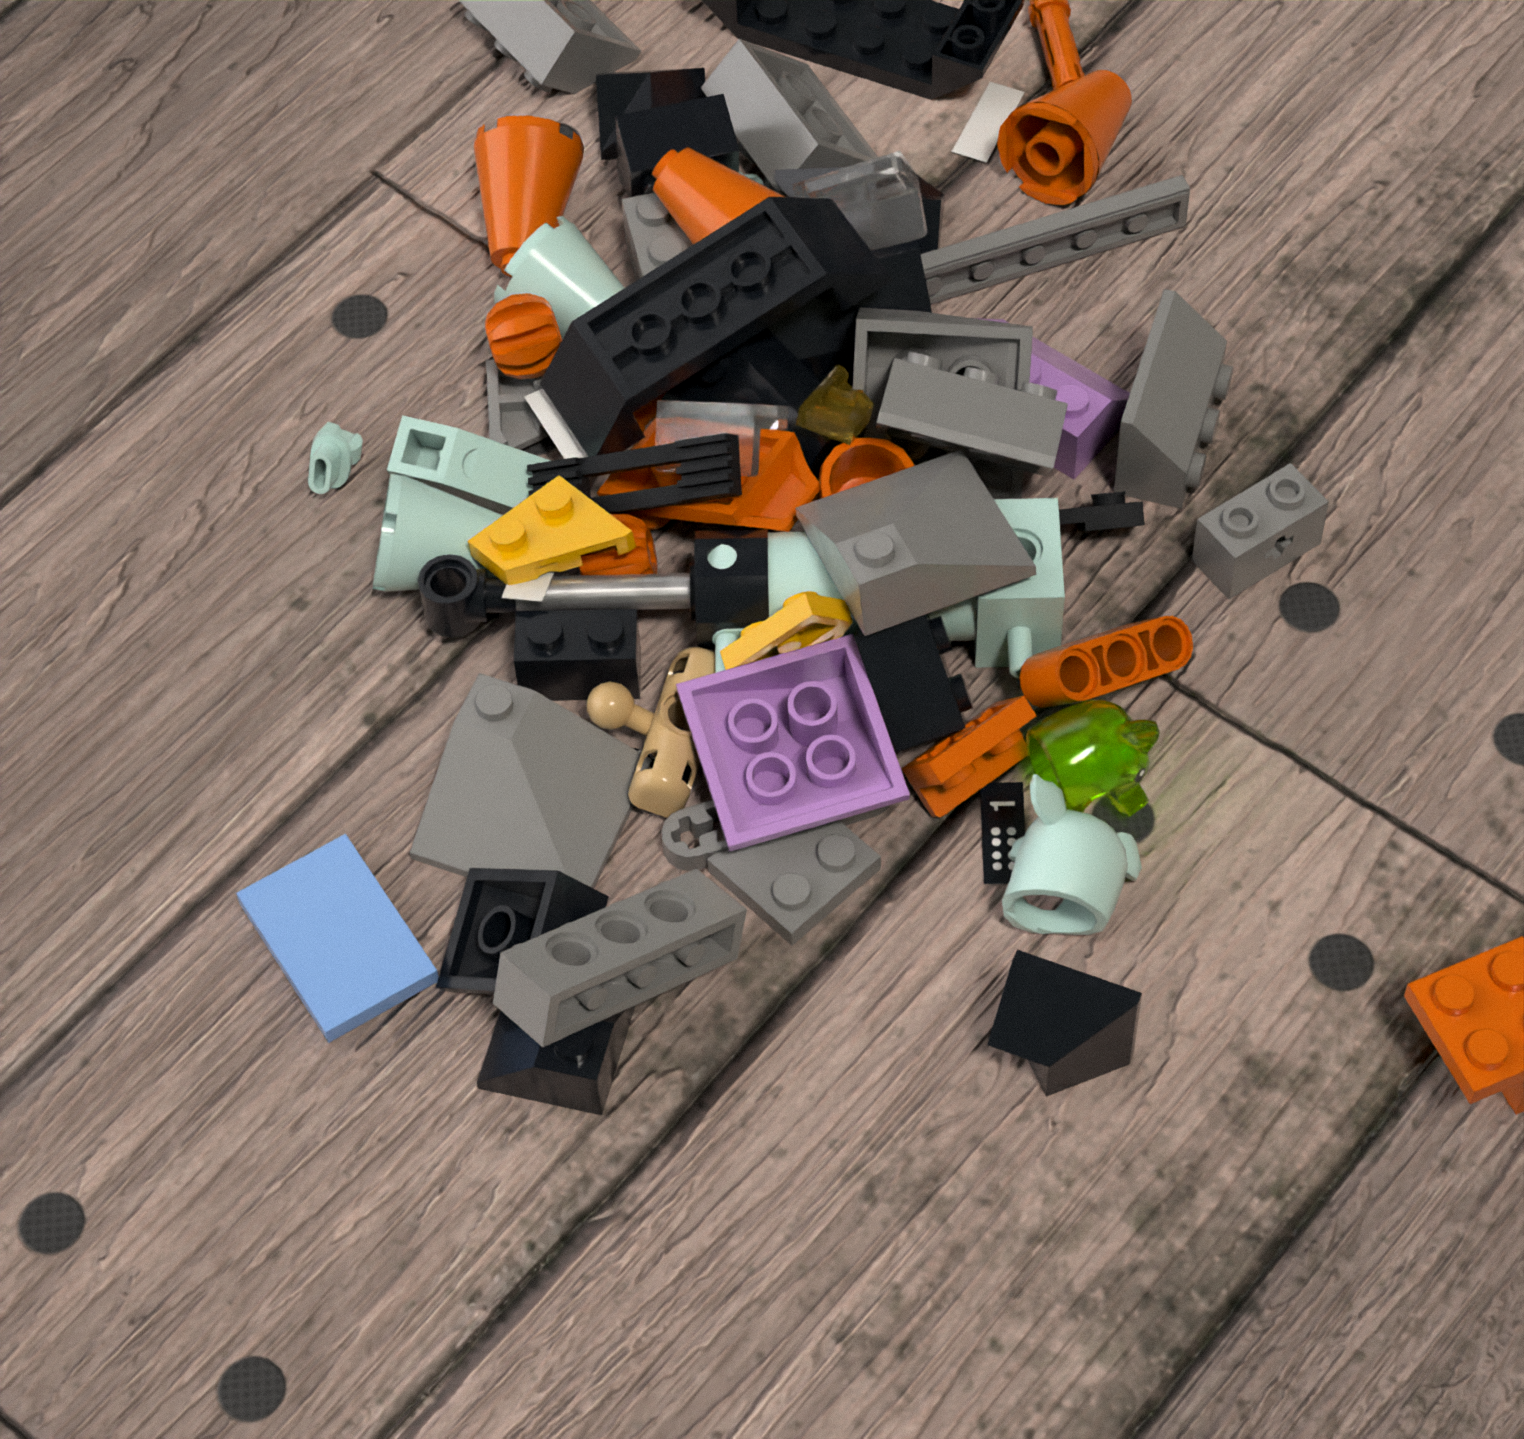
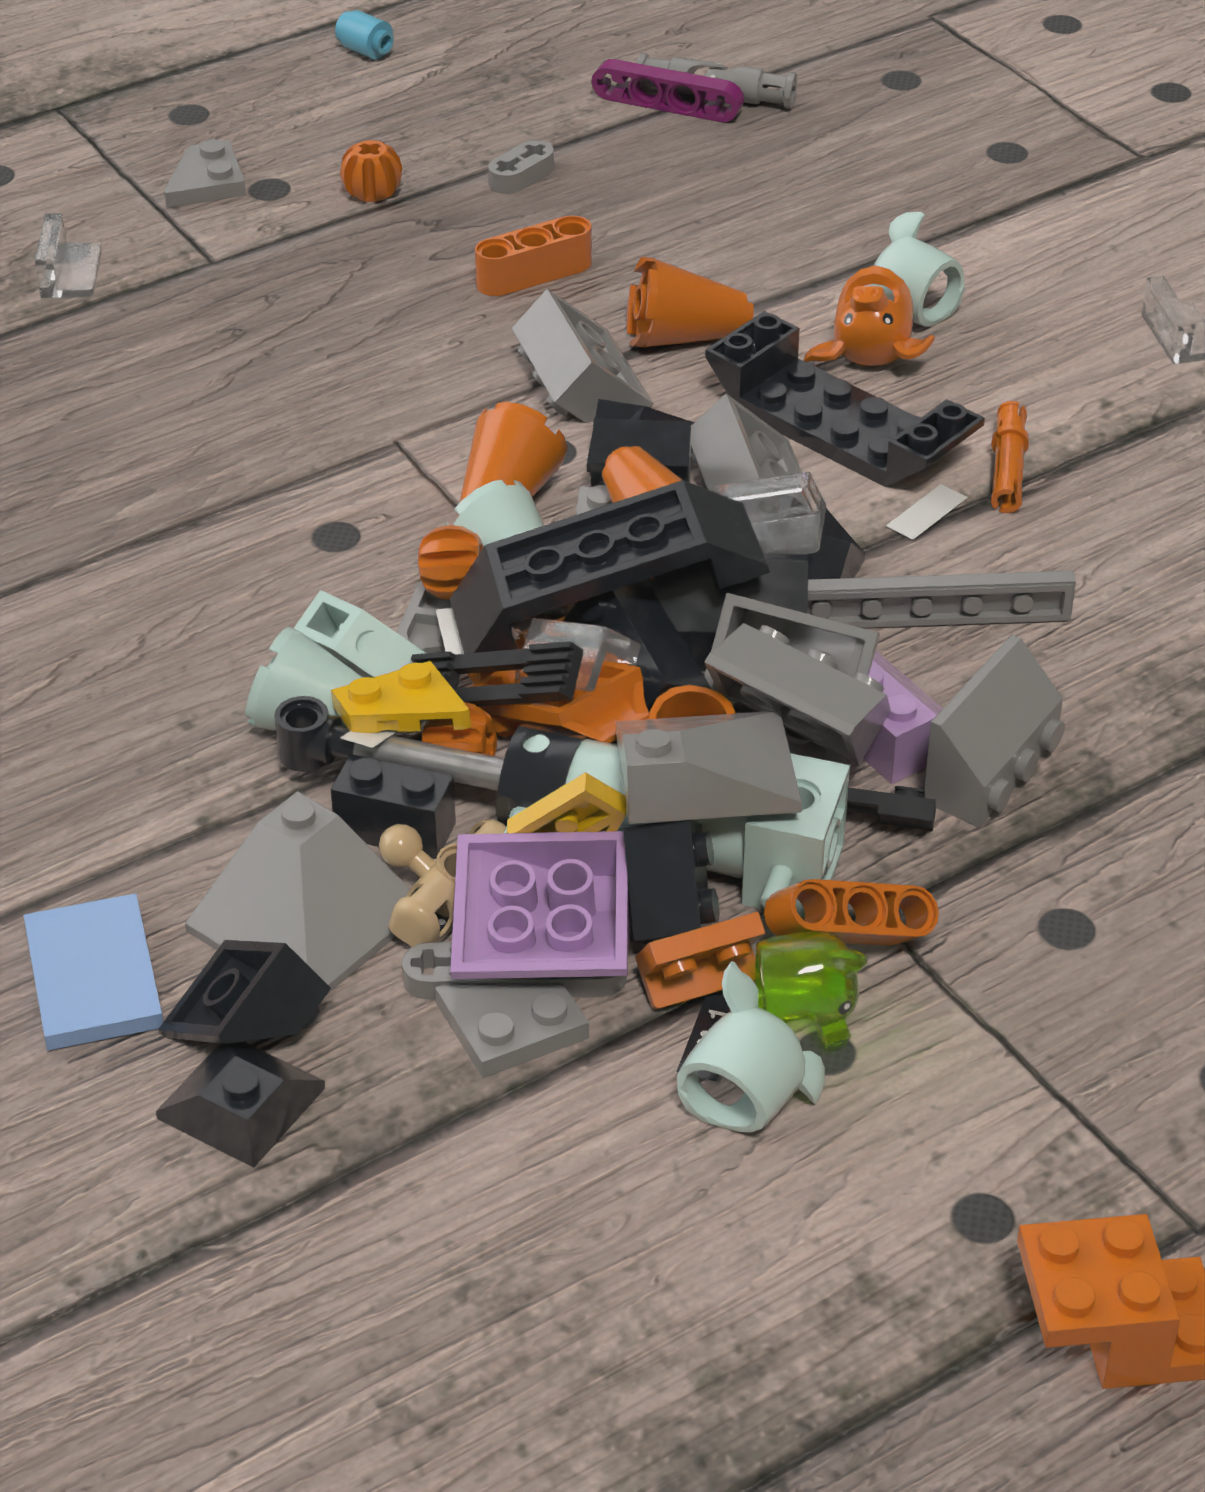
camera: 15 degrees right, 15 degrees down
(332, 457) = (258, 623): light aqua piece -> none
(618, 957) = (311, 1027): light grey brick -> none
(836, 408) = (681, 659): clear yellow tile -> none
(1064, 1022) = (692, 1183): black slope -> none
(1065, 136) = (983, 523): orange cone -> none
(1259, 531) = (1038, 851): light grey brick -> none

